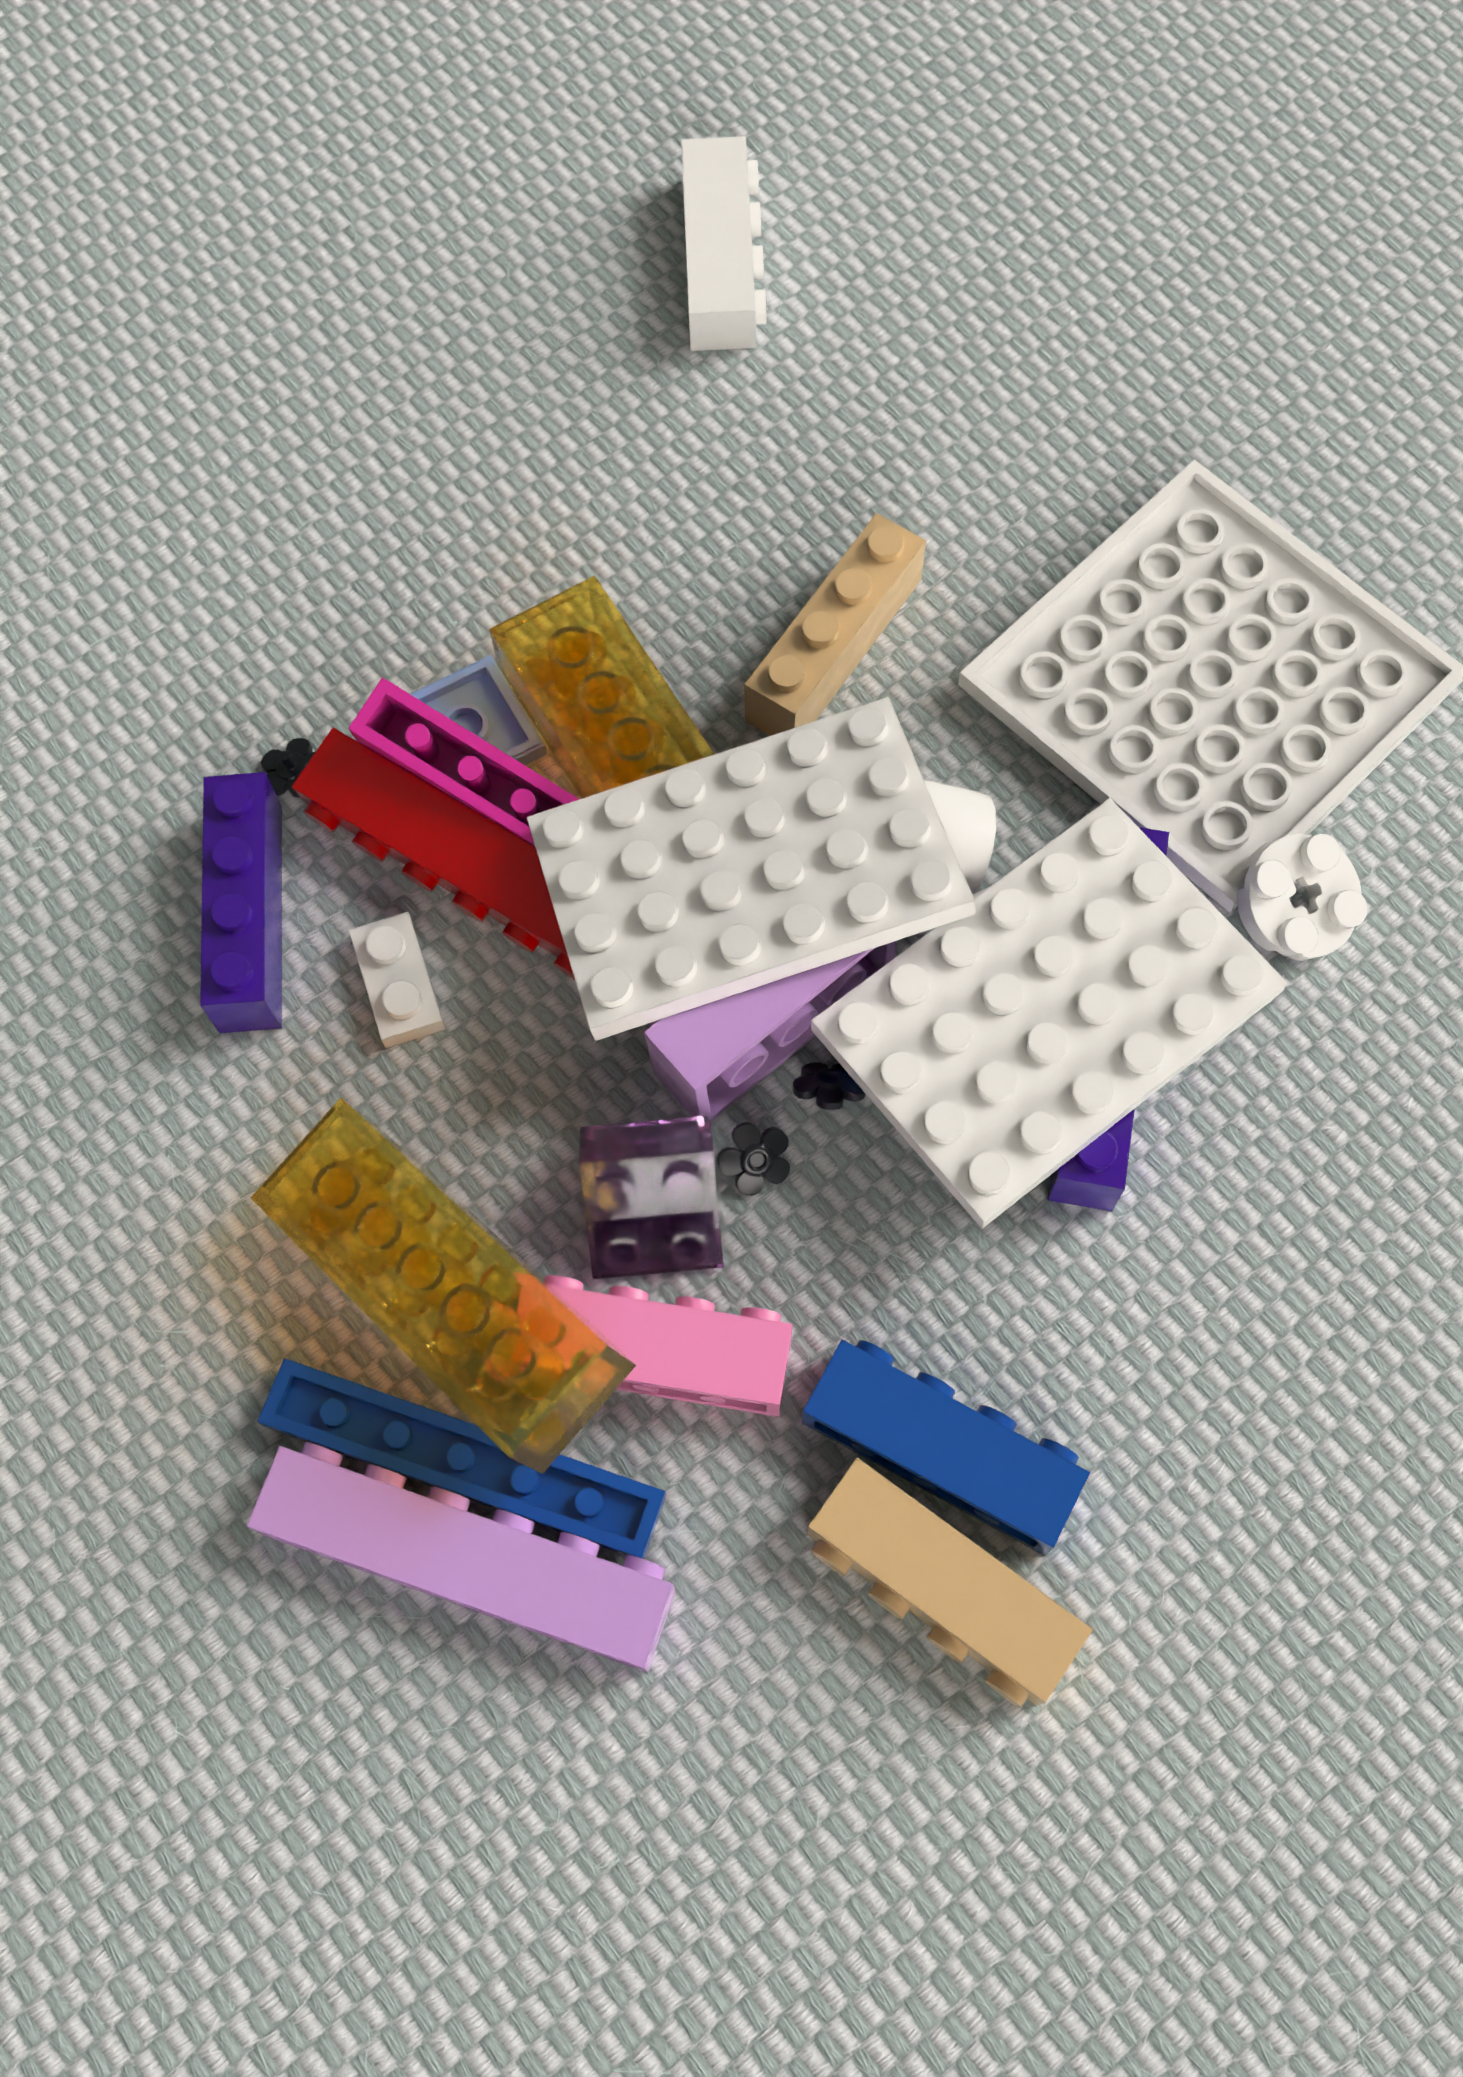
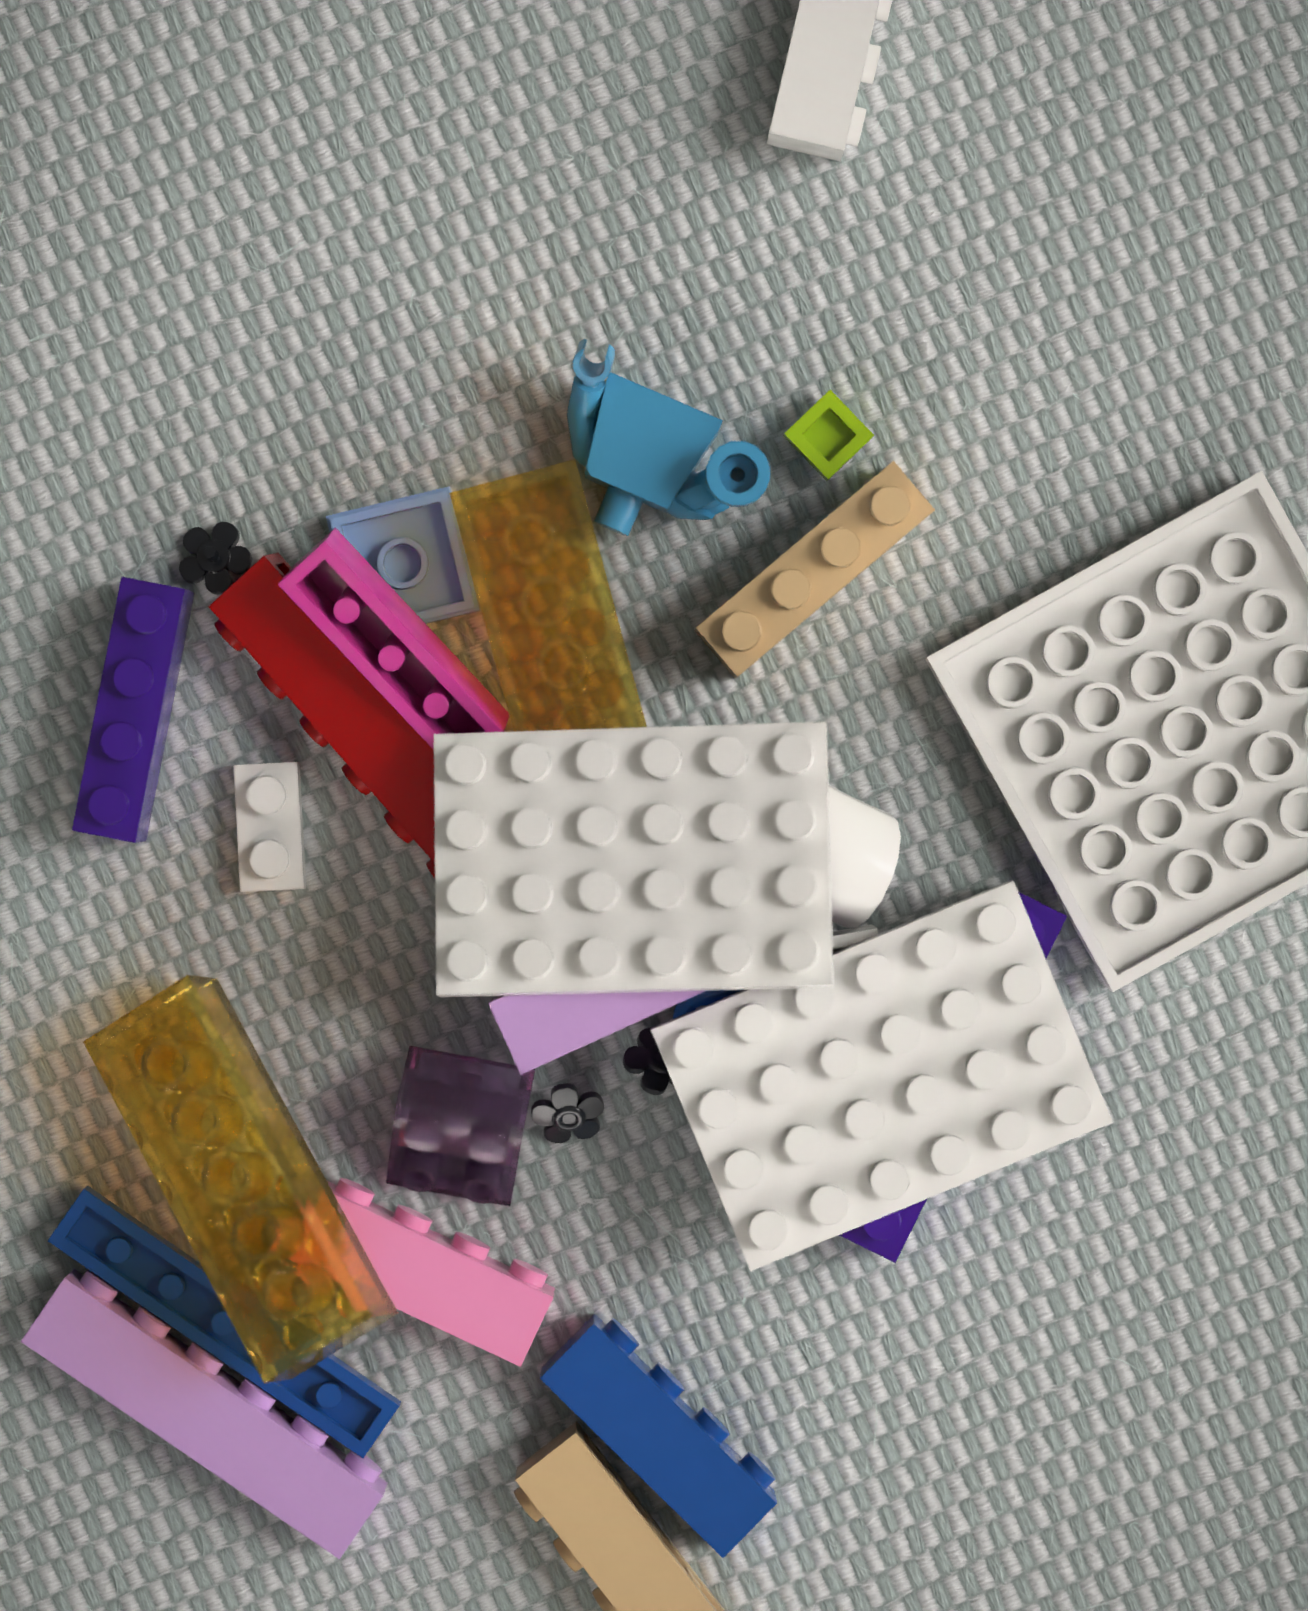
camera: 15 degrees right, 20 degrees up
(666, 570) = (649, 449): none -> dark azure torso
(813, 531) = (828, 435): none -> lime plate
(1332, 889) = (1198, 1032): white plate -> none

